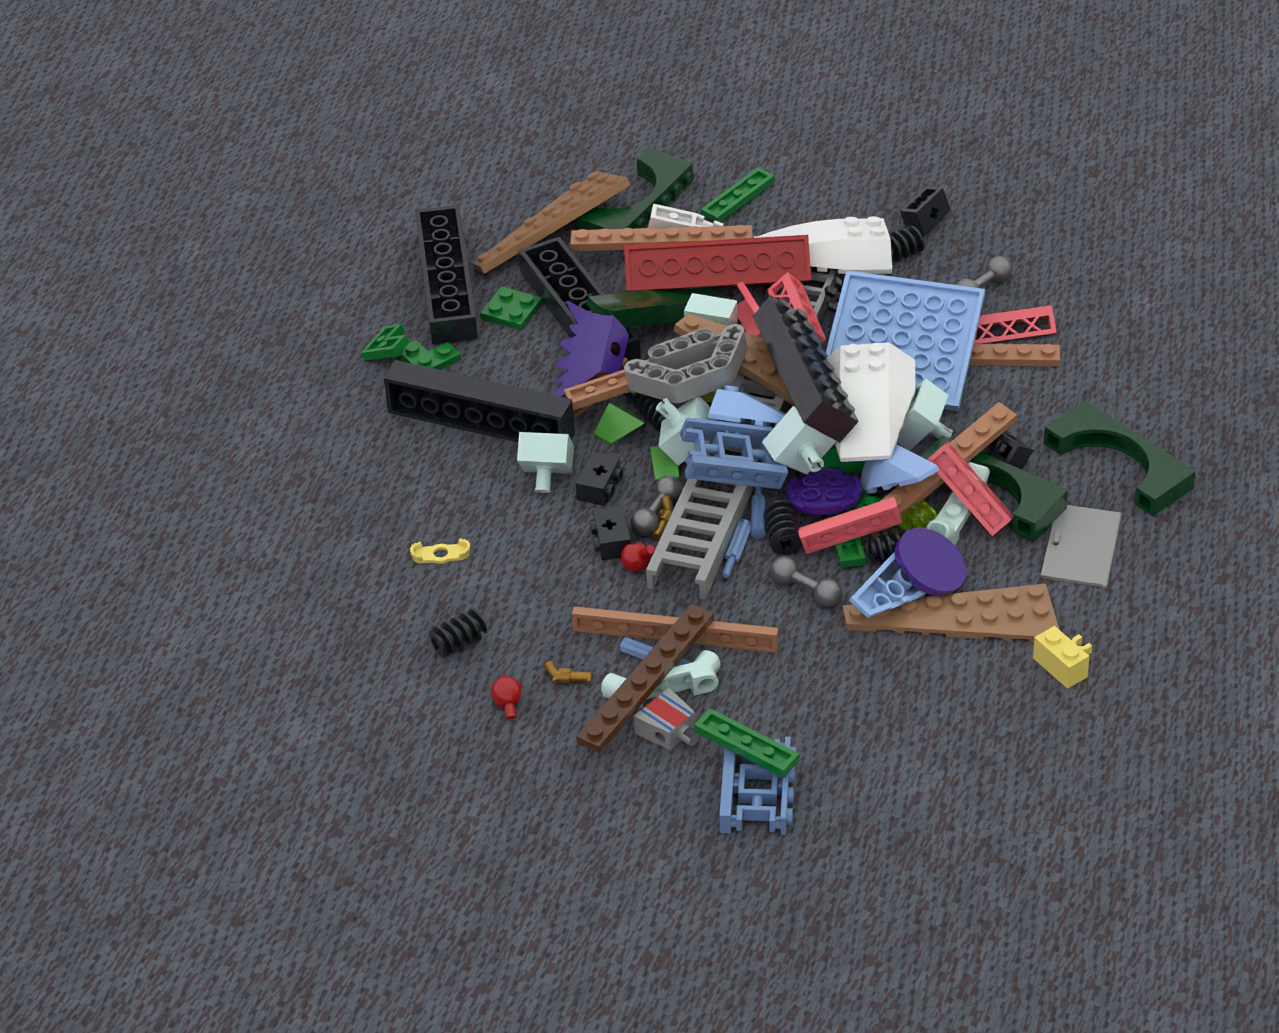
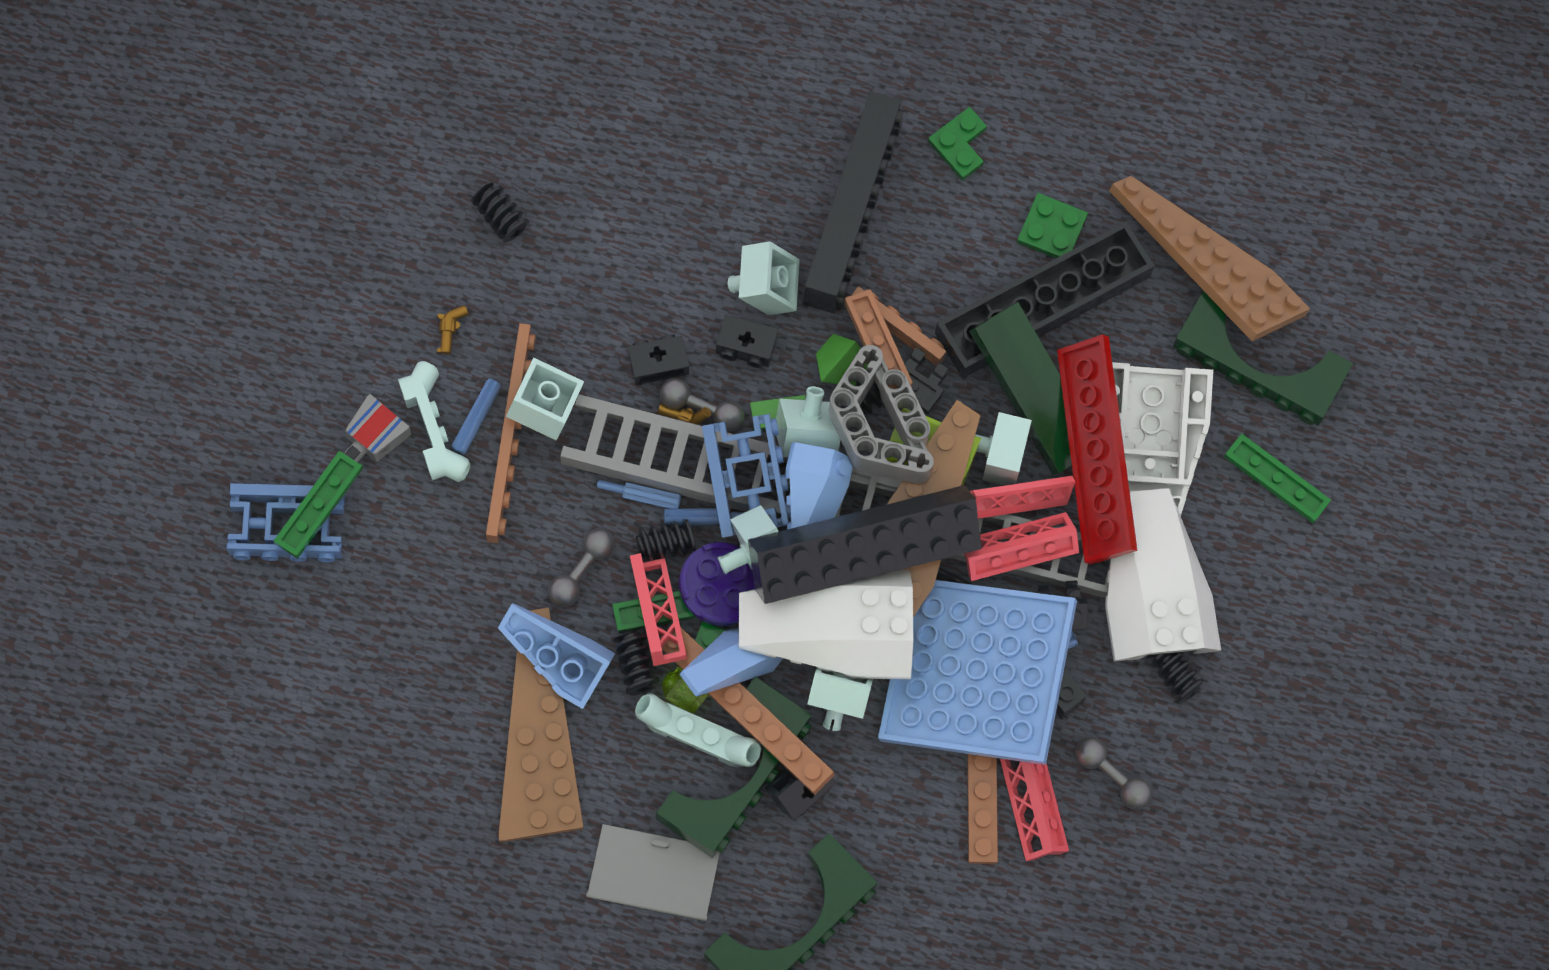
camera: 80 degrees right, 30 degrees up
(386, 343) = (971, 88): green plate -> none
(426, 554) = (635, 171): light yellow piece -> none
(446, 274) = (1098, 145): black brick -> none
(506, 694) = (413, 269): red piece -> none
(591, 348) = (941, 314): dark purple piece -> none
(616, 238) = (1161, 386): nougat plate -> none
(636, 556) = (618, 387): red piece -> none
(644, 678) = (419, 402): reddish brown plate -> none
(651, 585) = (545, 399): none -> light aqua brick
(926, 209) = (1243, 704): black brick -> none
(930, 561) = (596, 697): dark purple tile -> none
(971, 488) = (704, 743): coral fence -> none
(1062, 656) = (463, 837): light yellow brick -> none

